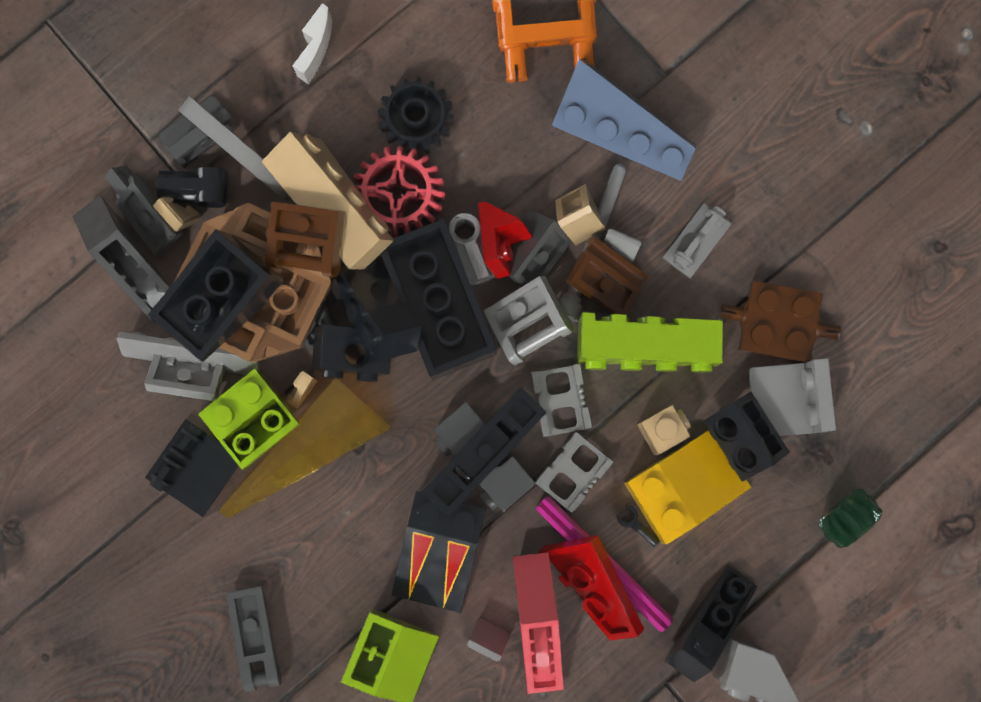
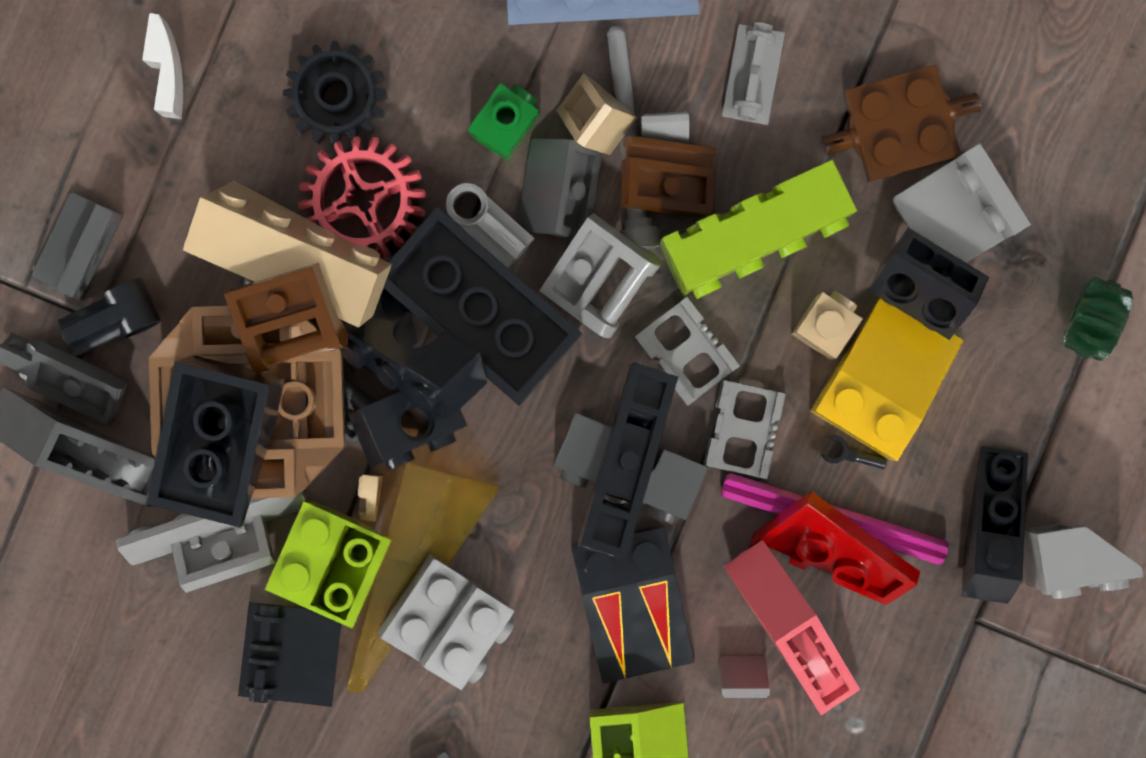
camera: 25 degrees left, 5 degrees up
(175, 214) = (107, 363): tan tile -> none
(230, 143) = (129, 244): light grey beam -> none
(308, 500) = (447, 623): none -> light grey plate
(498, 233) = (510, 190): red slope -> none
(518, 188) = (505, 121): none -> green brick

